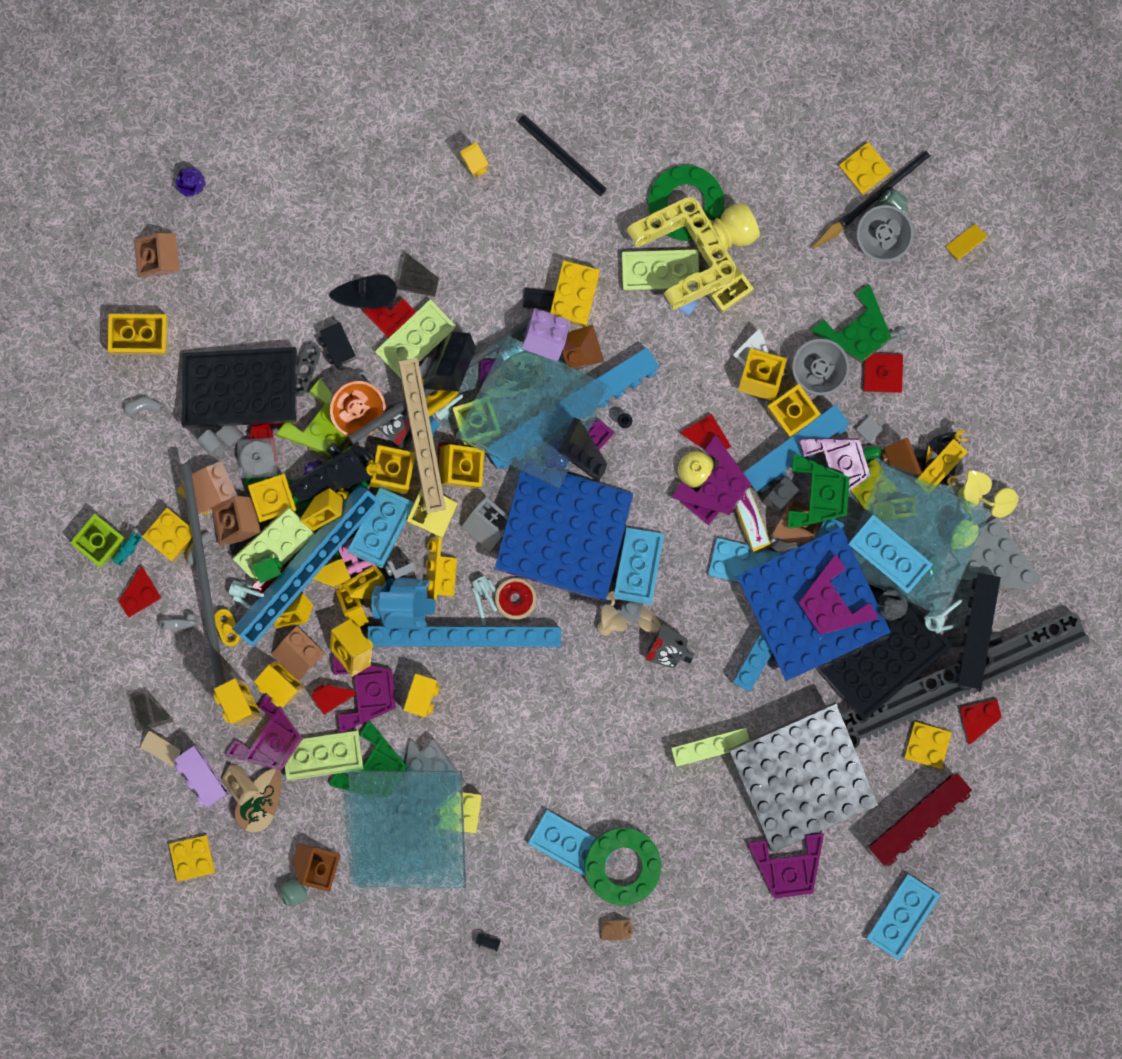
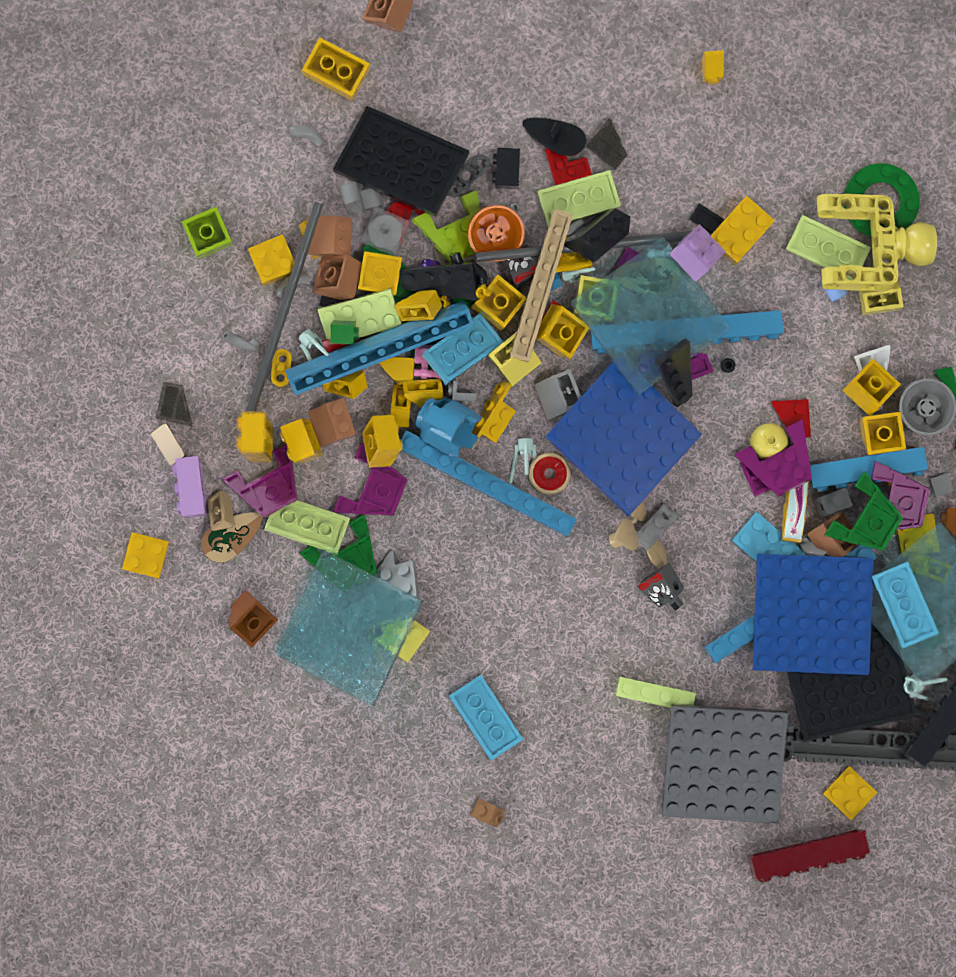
camera: 25 degrees right, 0 degrees up
(127, 548) = (229, 252): teal pin -> none
(139, 594) = (219, 298): red wing -> none
(293, 893) = (218, 631): sand green head -> none
(331, 697) = (341, 476): red slope -> none
(421, 696) = (422, 516): yellow brick -> none
(487, 941) = (368, 764): black pin -> none
(562, 155) = (792, 102): black axle -> none
(582, 349) = (722, 282): dark orange slope -> none
(595, 866) = (510, 735): green plate -> none
(639, 566) = (674, 500): medium azure plate -> none
(792, 874) = (669, 845): magenta wing -> none
(826, 607) = (823, 621): magenta wing -> none
(872, 452) = (934, 507): green arm -> none
(892, 605) = (883, 651): dark grey piece -> none
(903, 917) = (749, 934): medium azure plate -> none
(979, 718) = (908, 793): red wing -> none

